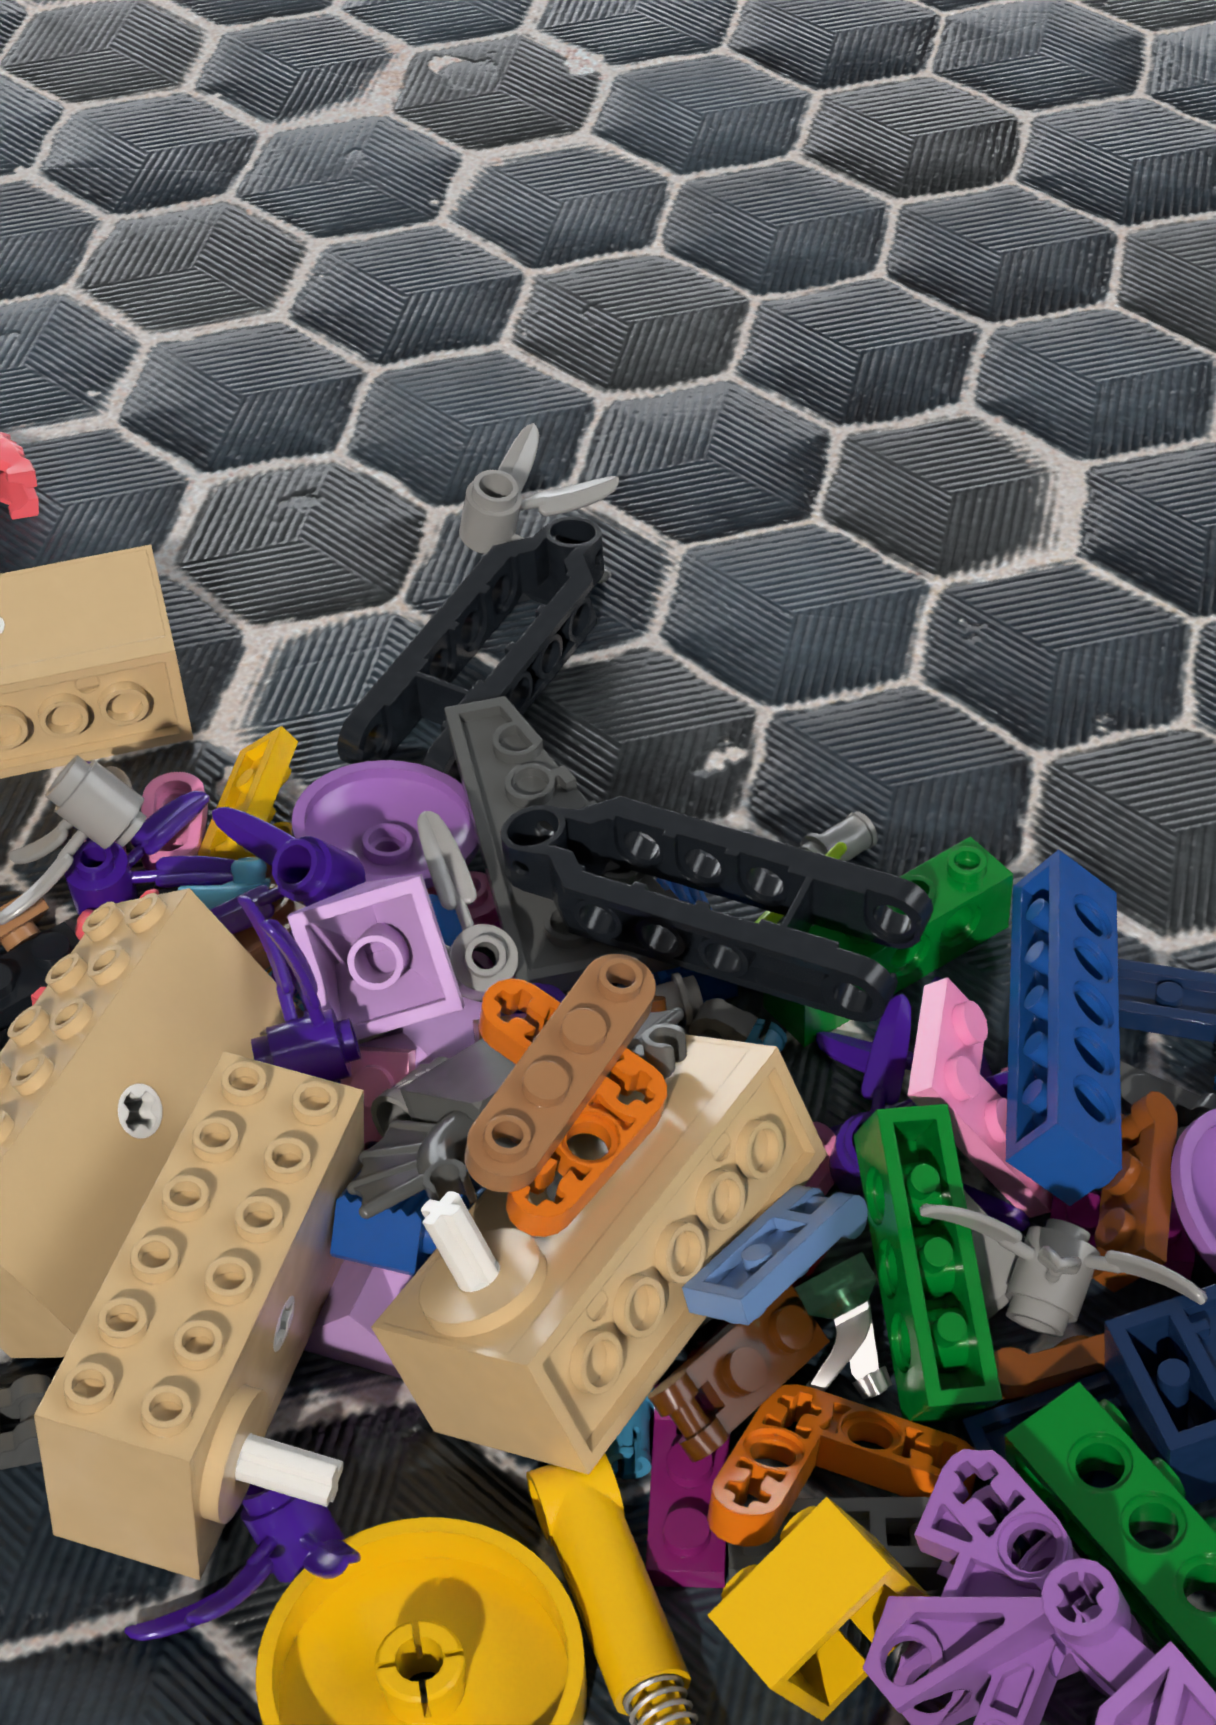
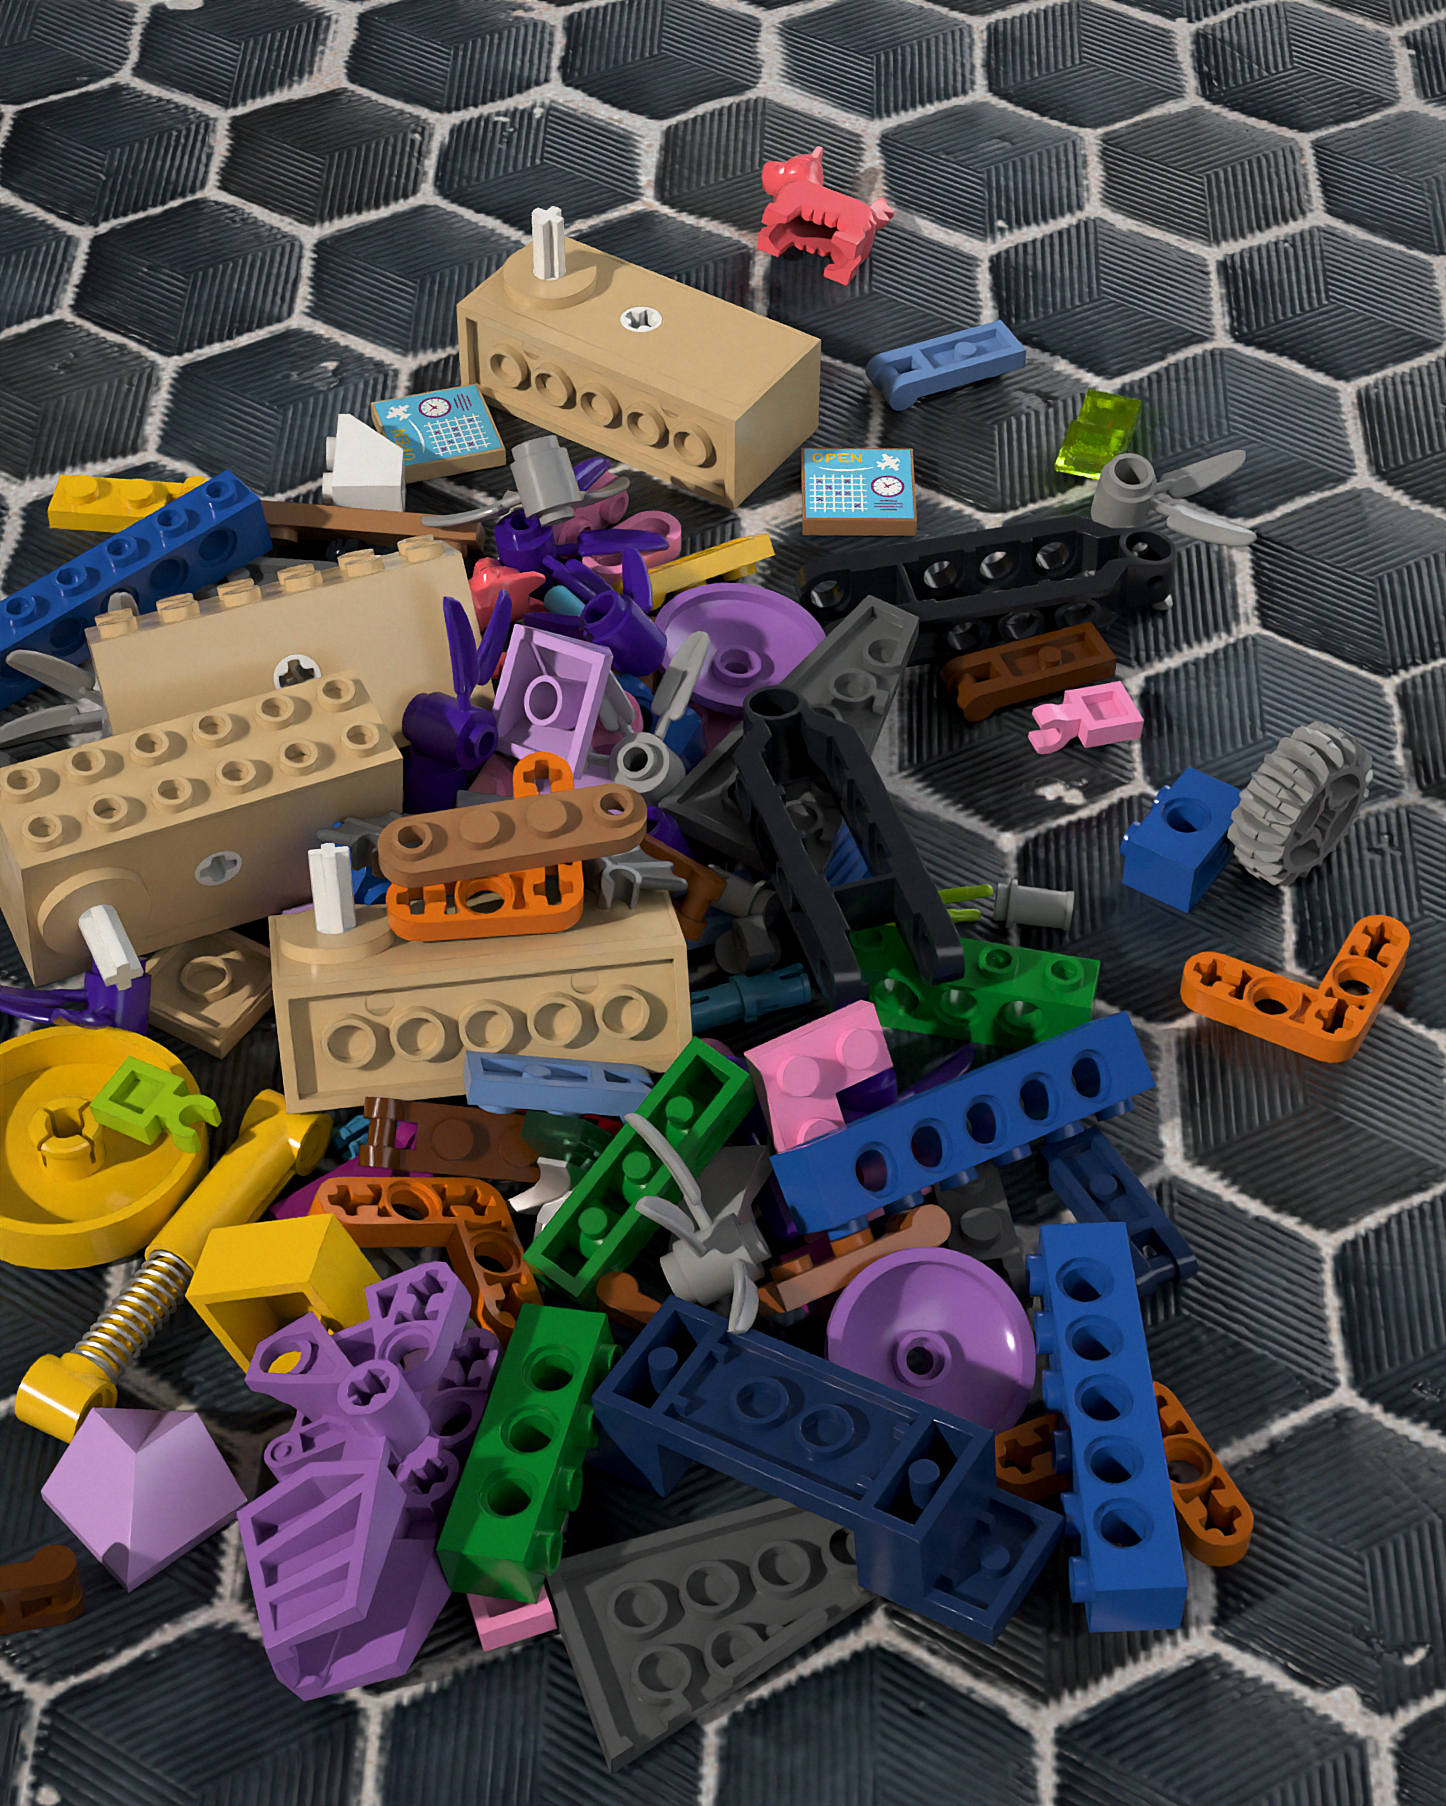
camera: 45 degrees right, 0 degrees up
(210, 516) = (945, 363): none -> medium blue plate
(276, 654) = (858, 492): none -> tile
(350, 1420) = (210, 989): none -> tan tile
(393, 490) = (1099, 433): none -> clear neon green slope
(476, 1573) = (149, 1100): none -> lime plate
(590, 686) = (1027, 669): none -> reddish brown plate
(681, 681) = (1093, 713): none -> bright pink plate
(868, 717) = (1181, 840): none -> blue brick
(928, 628) = (1300, 803): none -> light grey gear
(1029, 796) = (1309, 1010): none -> orange beam

